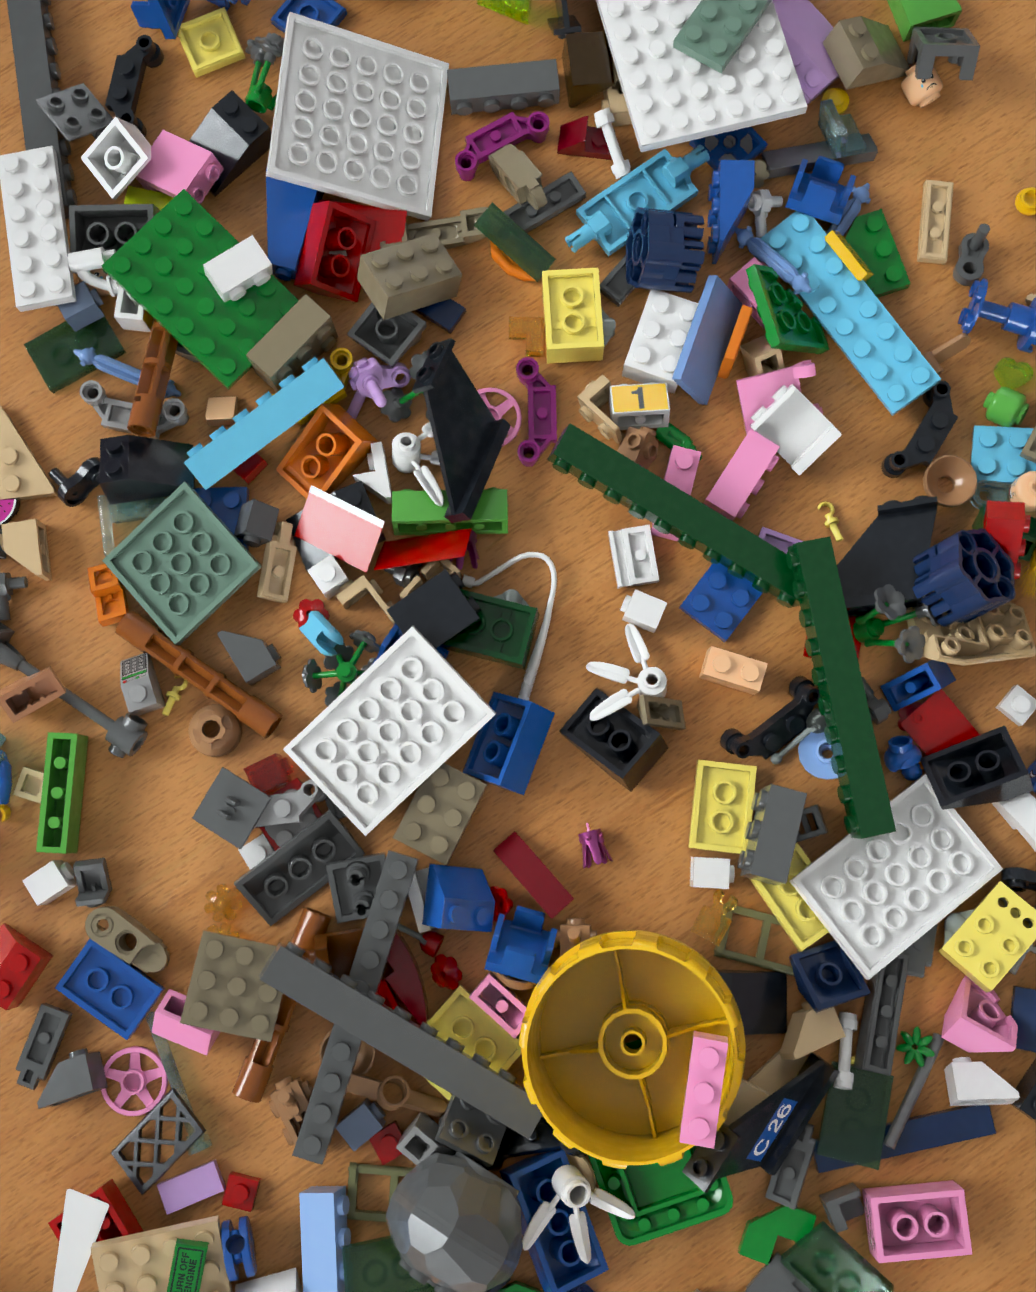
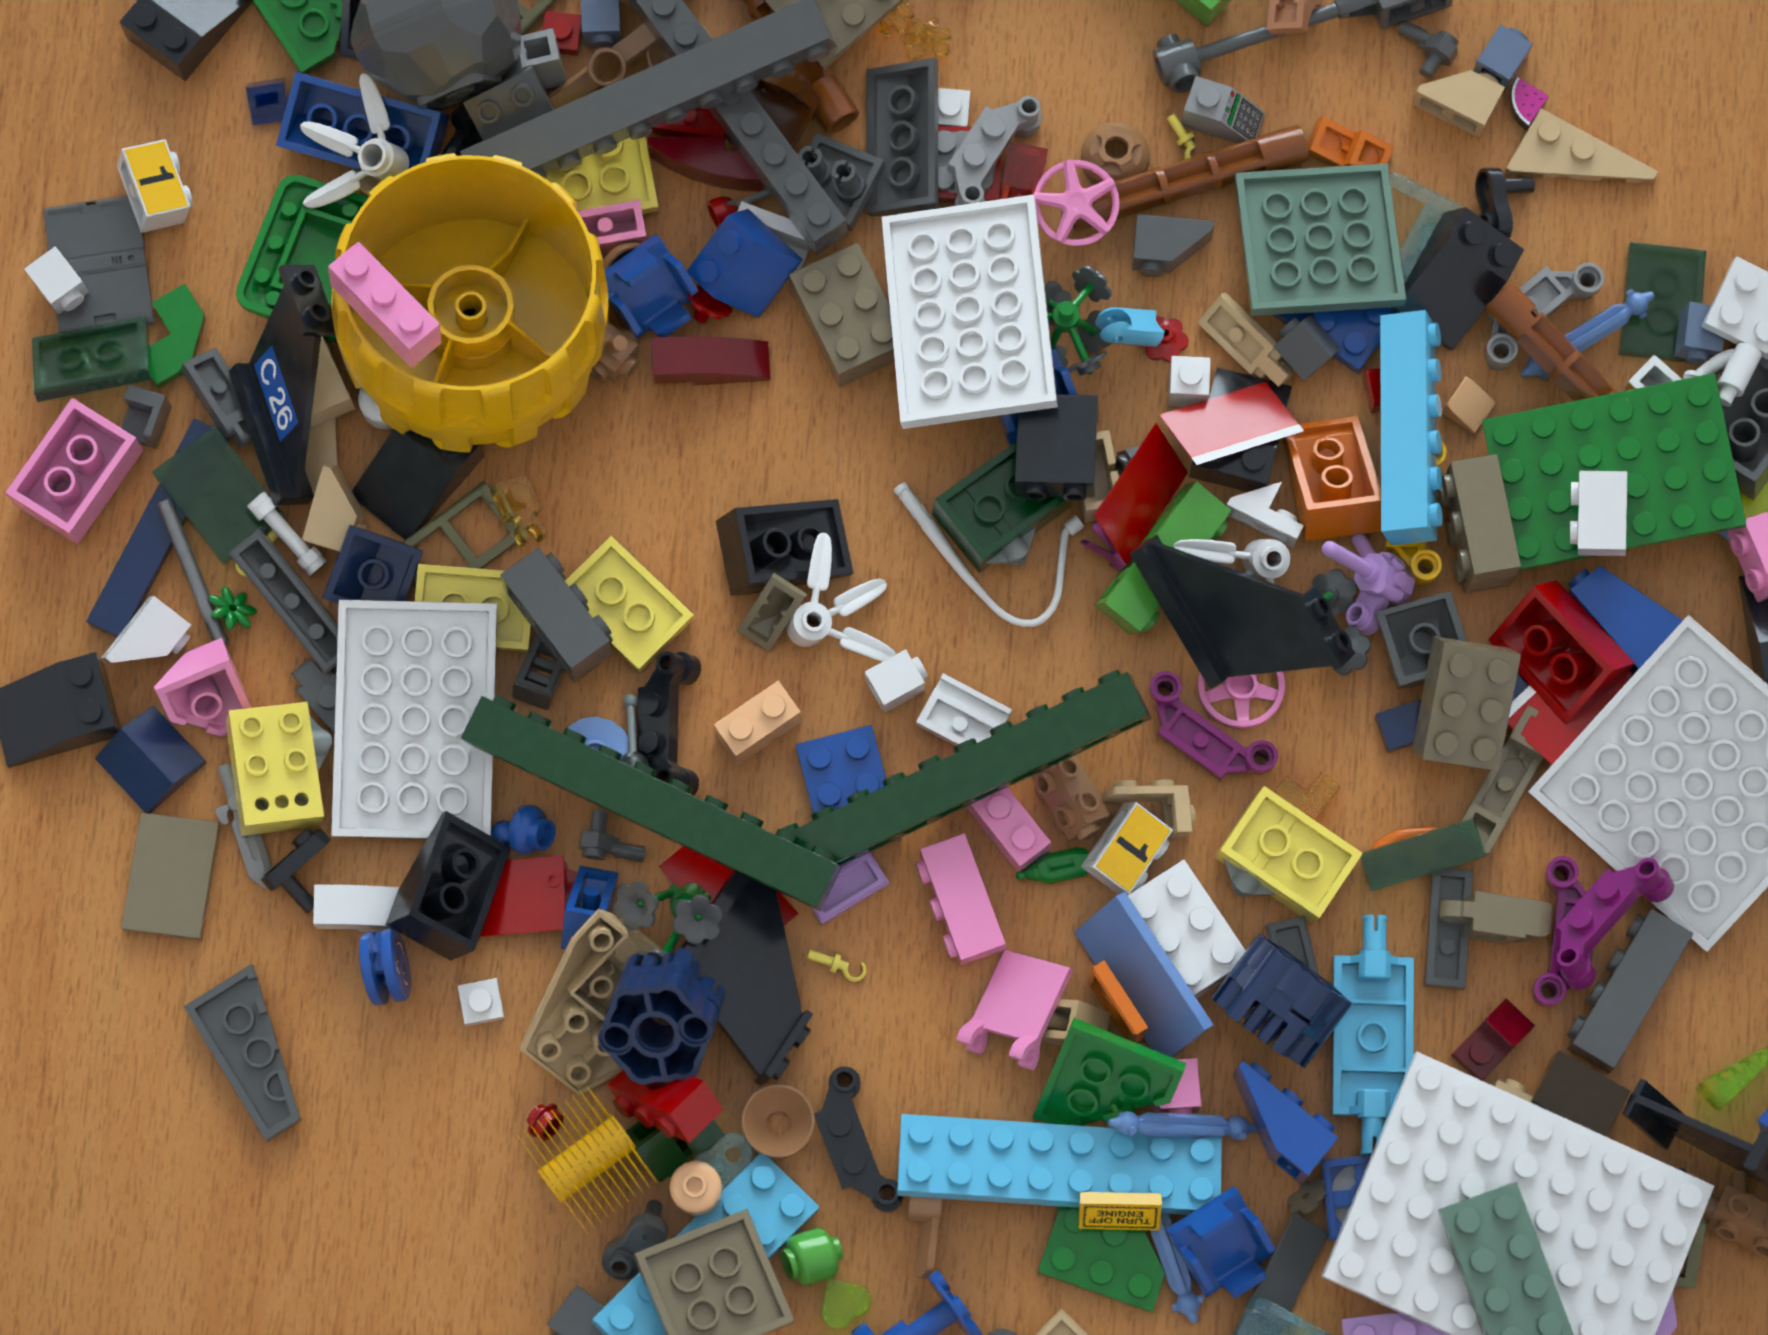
camera: 125 degrees right, 5 degrees down
(231, 808) = (1015, 108): dark grey piece -> none
(266, 722) = (1077, 202): none -> bright pink wheel
(354, 591) = (1139, 417): tan bracket -> none
(445, 972) = (682, 204): red plant -> none
(474, 125) = (1600, 911): none -> magenta plate
(509, 743) = (864, 436): blue slope -> none
(593, 843) = (699, 441): flat silver piece -> none
(604, 120) = (1495, 1065): white bar -> none
(711, 872) = (569, 537): white brick -> none
(761, 204) = (1263, 1174): white piece -> none
(795, 427) = (968, 997): white panel -> none

